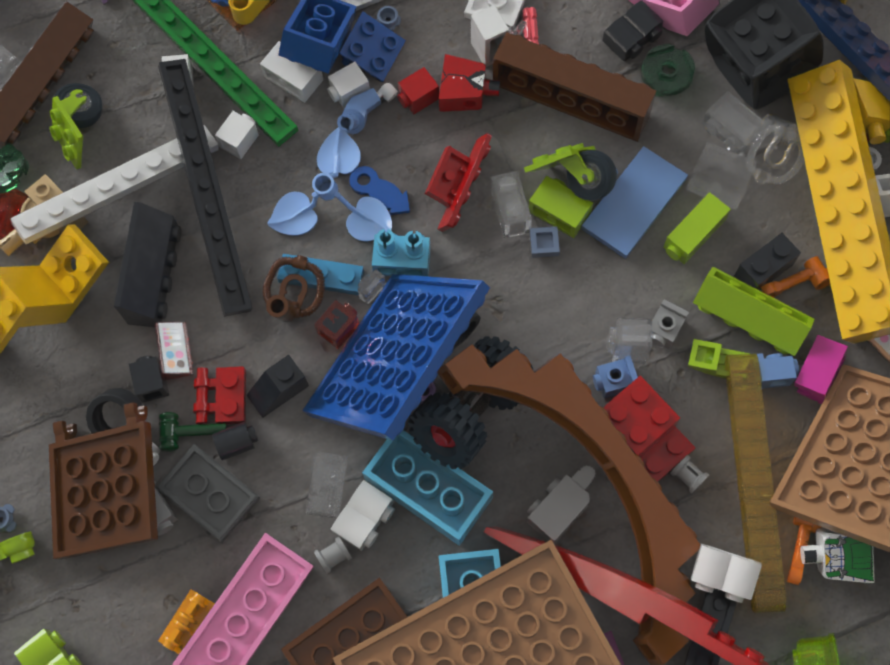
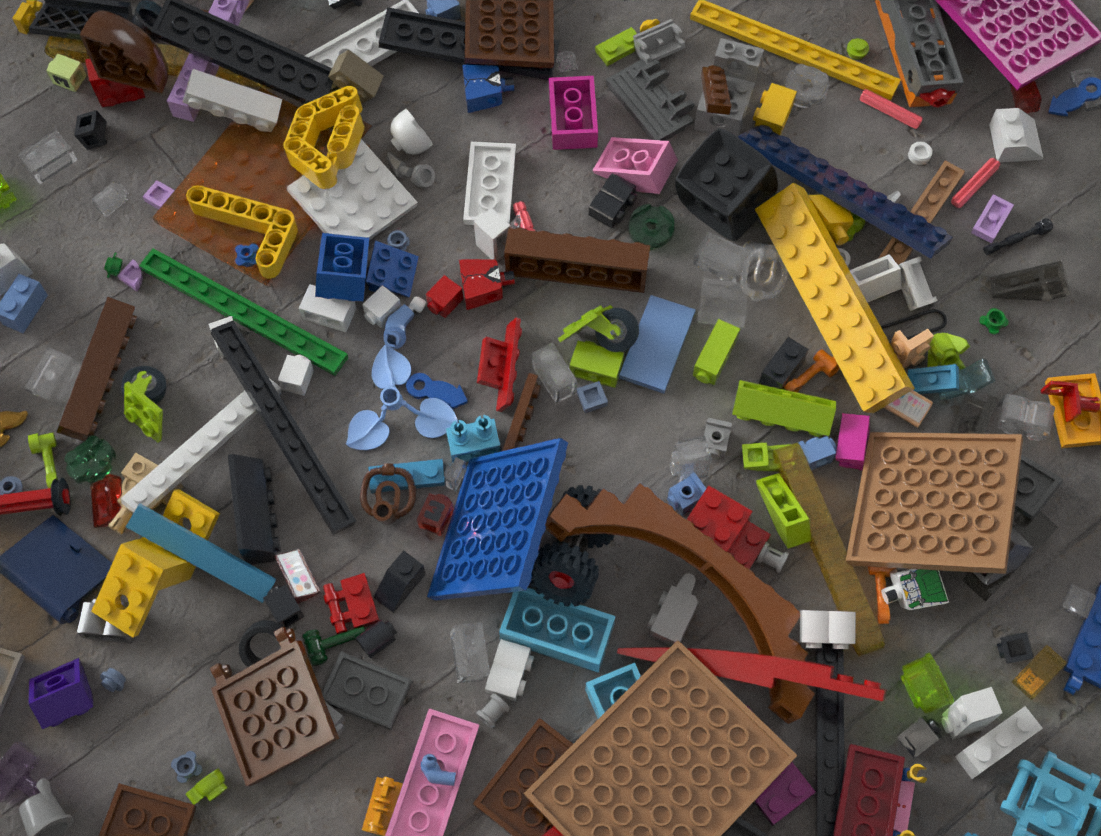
camera: 20 degrees left, 5 degrees down
(77, 298) = (200, 552): none -> dark azure tile
(248, 604) = (434, 773): none -> medium blue arm
(463, 240) = (523, 412): none -> reddish brown plate
(719, 426) = (785, 511): none -> lime slope

